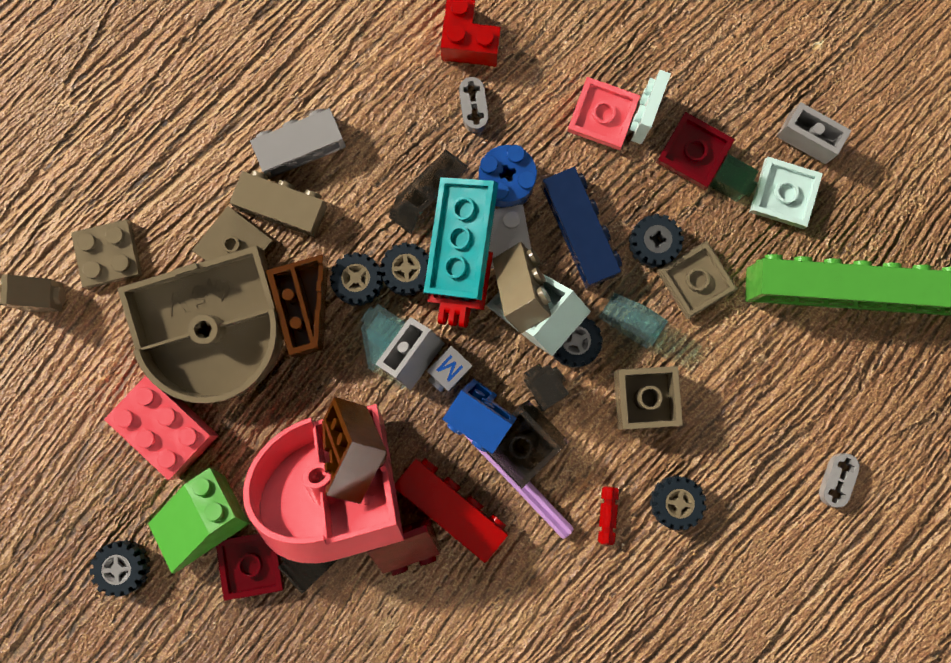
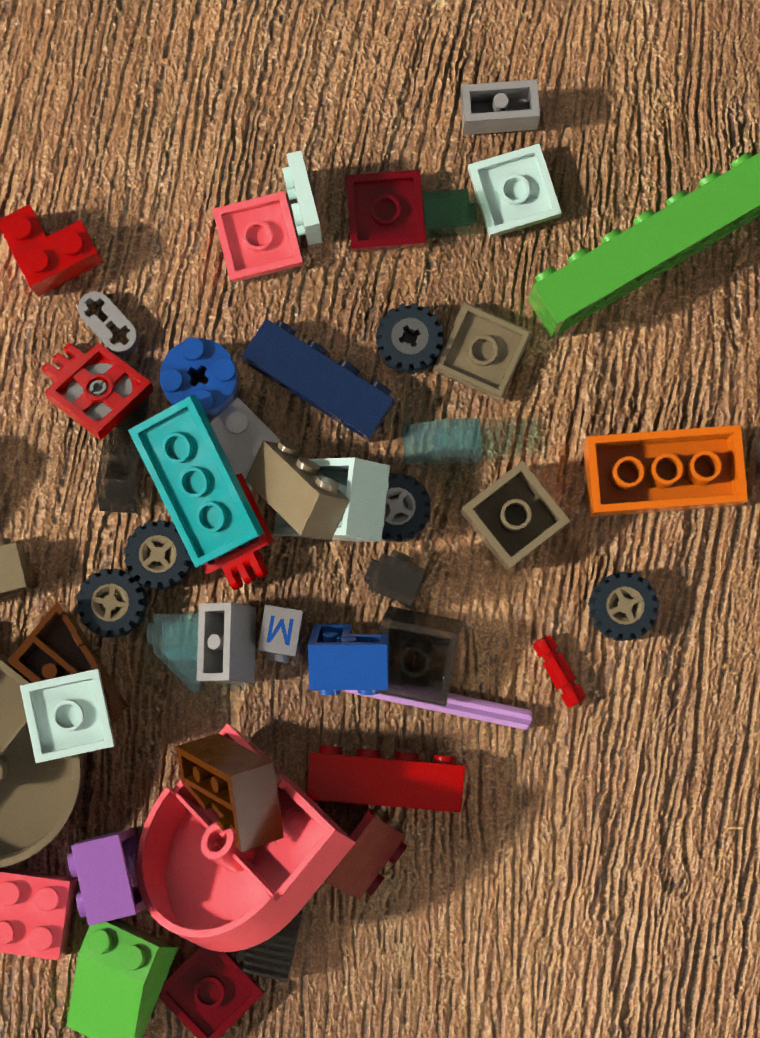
camera: 30 degrees left, 0 degrees up
(233, 448) = (106, 876): none -> medium lavender brick
(278, 330) = (67, 715): none -> light aqua plate
(438, 138) = (95, 388): none -> red piece
(764, 435) = (665, 471): none -> orange brick

